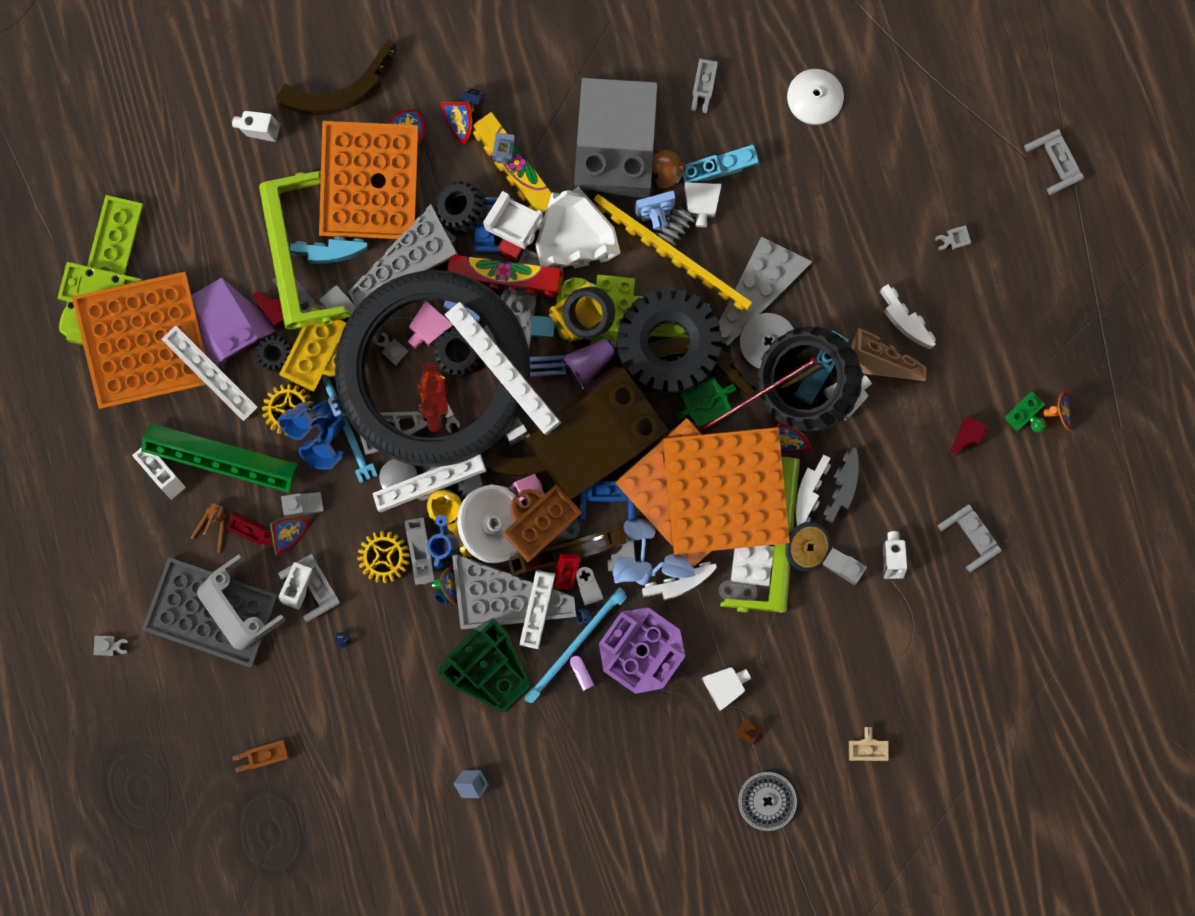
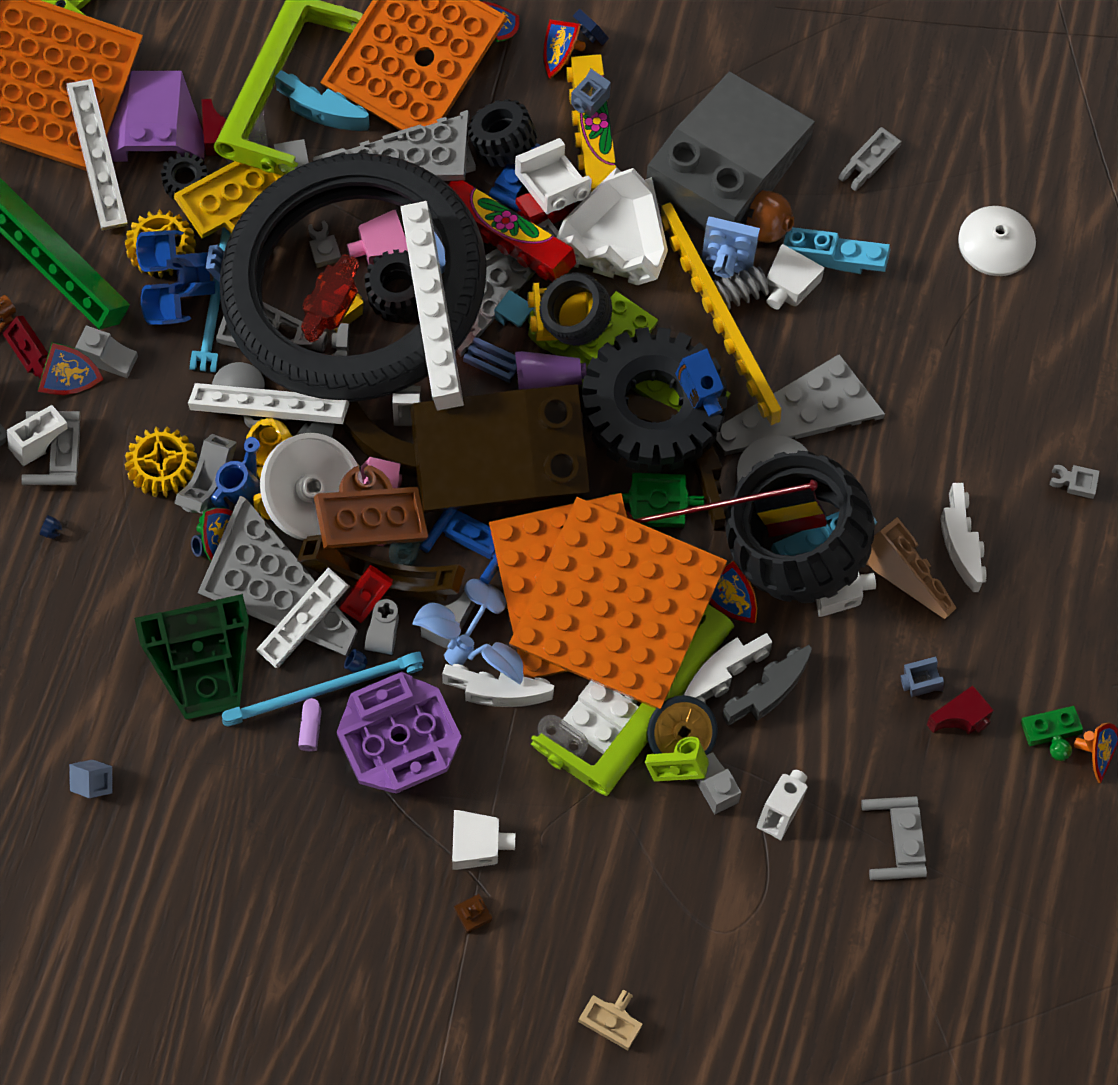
camera: 30 degrees right, 15 degrees down
(691, 316) = (701, 382): none -> blue torso
(782, 796) = (453, 992): piece -> none
(820, 568) = (685, 763): none -> lime plate
(931, 427) = (922, 677): none -> sand blue window

